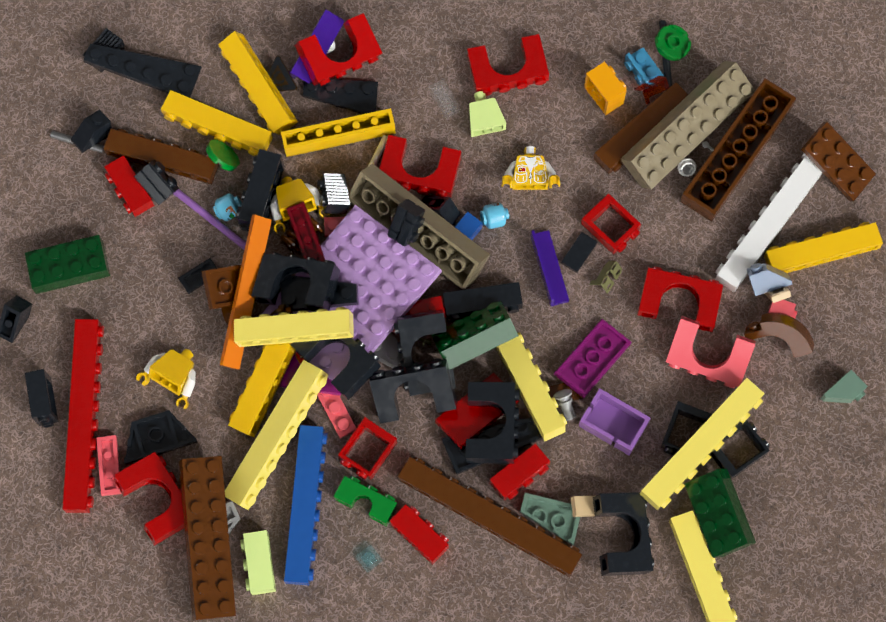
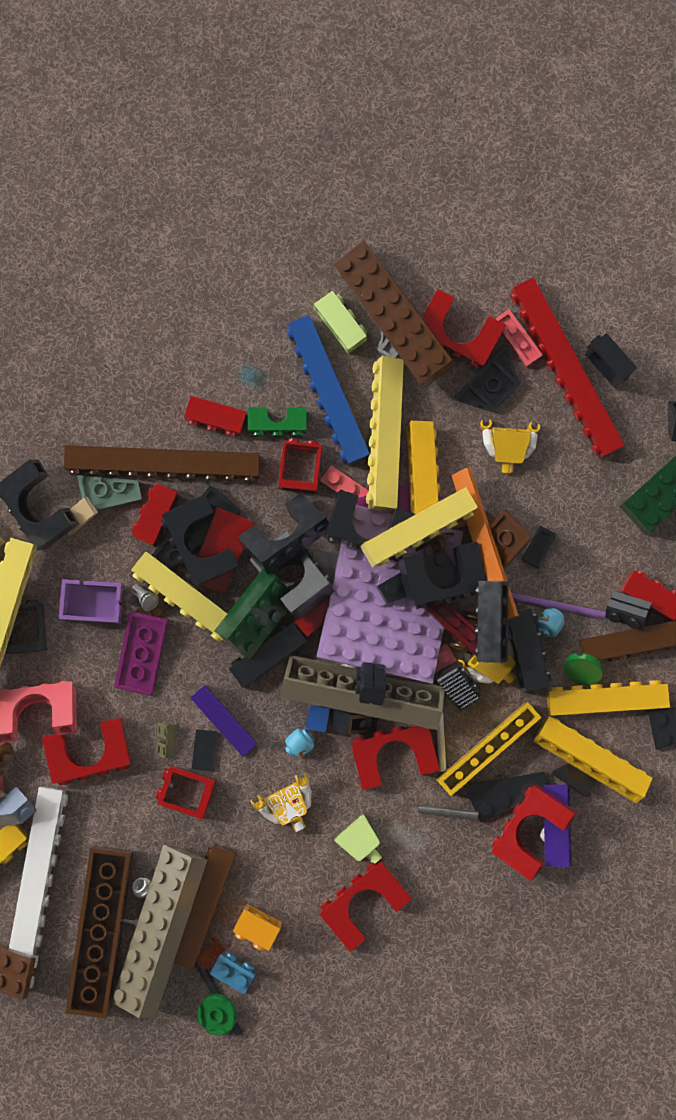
camera: 150 degrees right, 10 degrees up
(276, 220) = (492, 621): none -> black brick
(398, 101) = (448, 812): none -> flat silver bar

